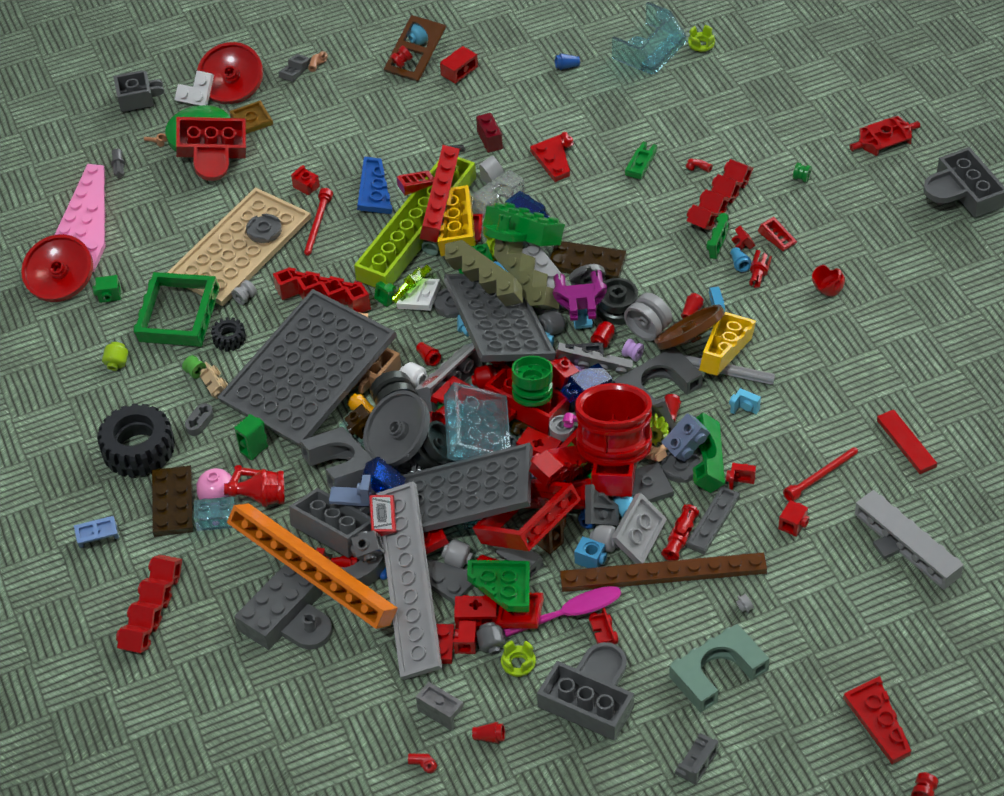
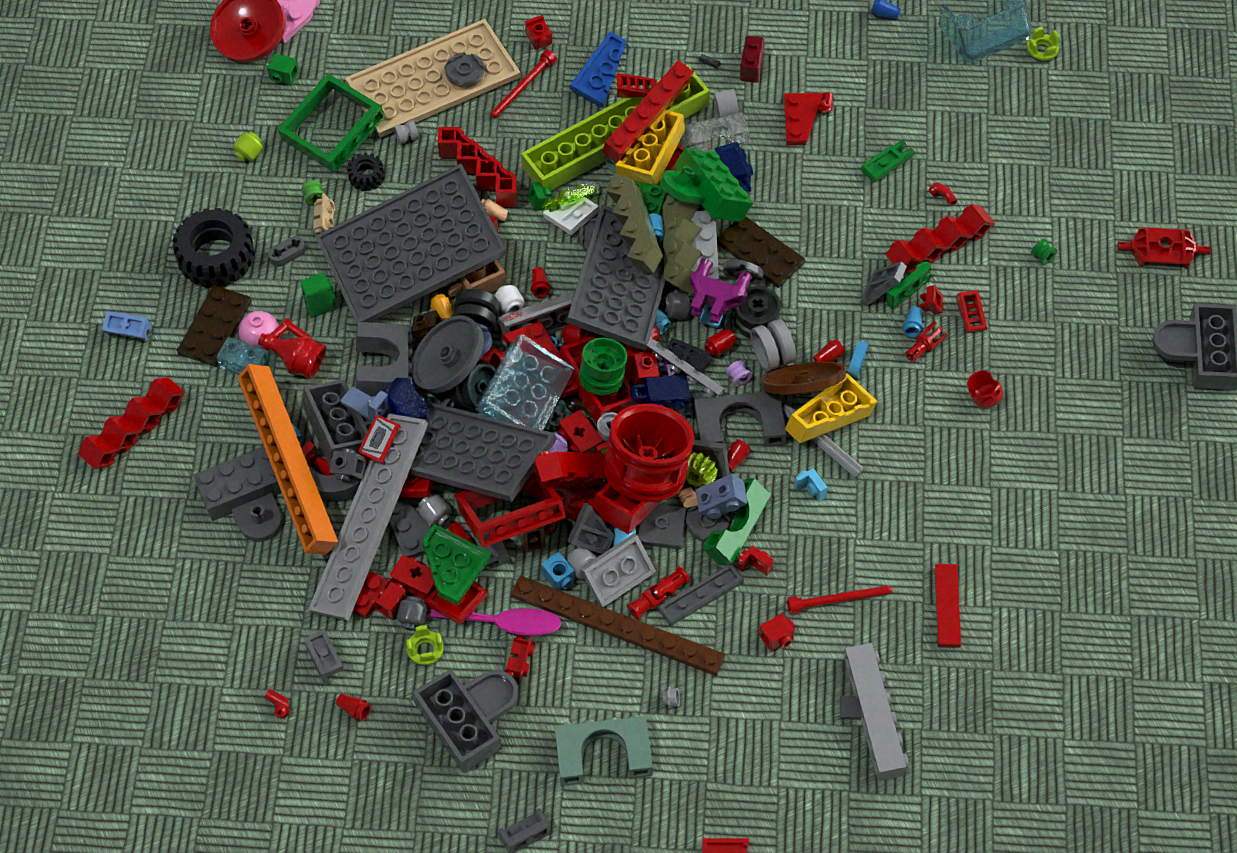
camera: 25 degrees right, 10 degrees up
(698, 239) = (882, 281): none -> dark grey wing

